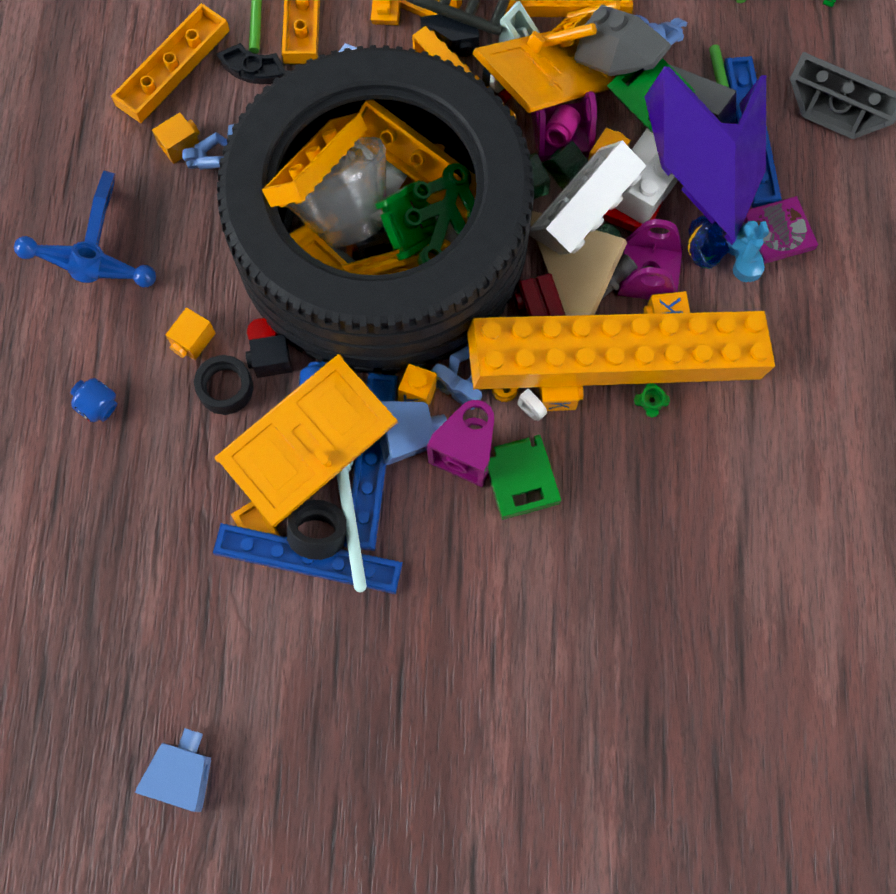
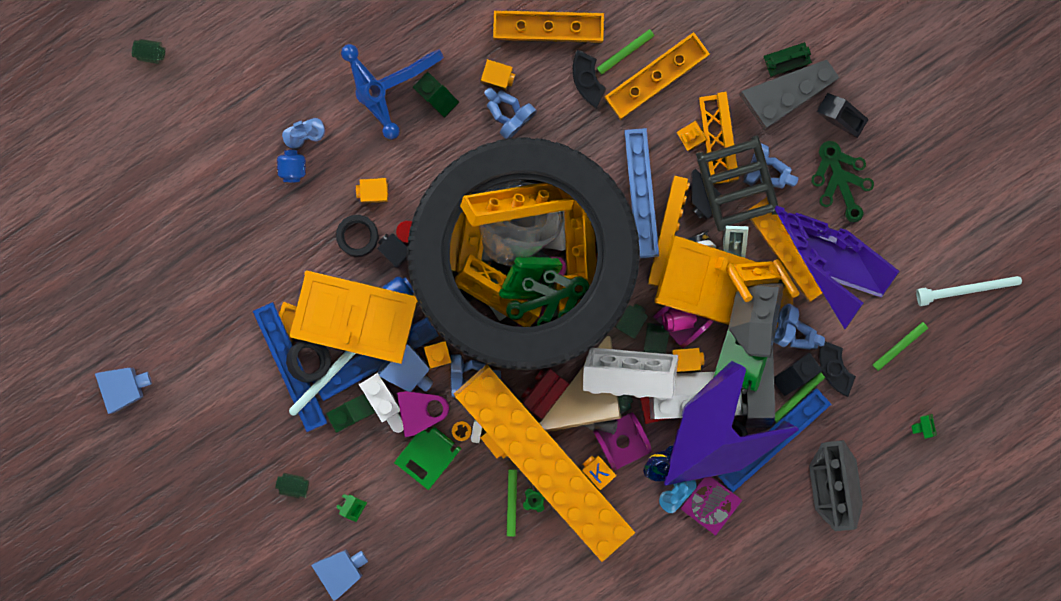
camera: 55 degrees right, 15 degrees up
(69, 359) = (301, 131): none -> medium blue piece
(149, 209) = (436, 94): none -> dark green slope
(410, 529) = (350, 413): none -> dark green slope
(425, 481) = (383, 401): none -> white brick
(445, 652) = (292, 485): none -> clear green brick
(511, 427) = (467, 433): none -> light orange bush
(520, 600) = (352, 507): none -> green tile
(587, 669) = (339, 571): none -> medium blue torso
(638, 426) = (512, 497): none -> bright green bar
(699, 53) = (797, 374): none -> black slope
(709, 32) = (834, 370): none -> black tile

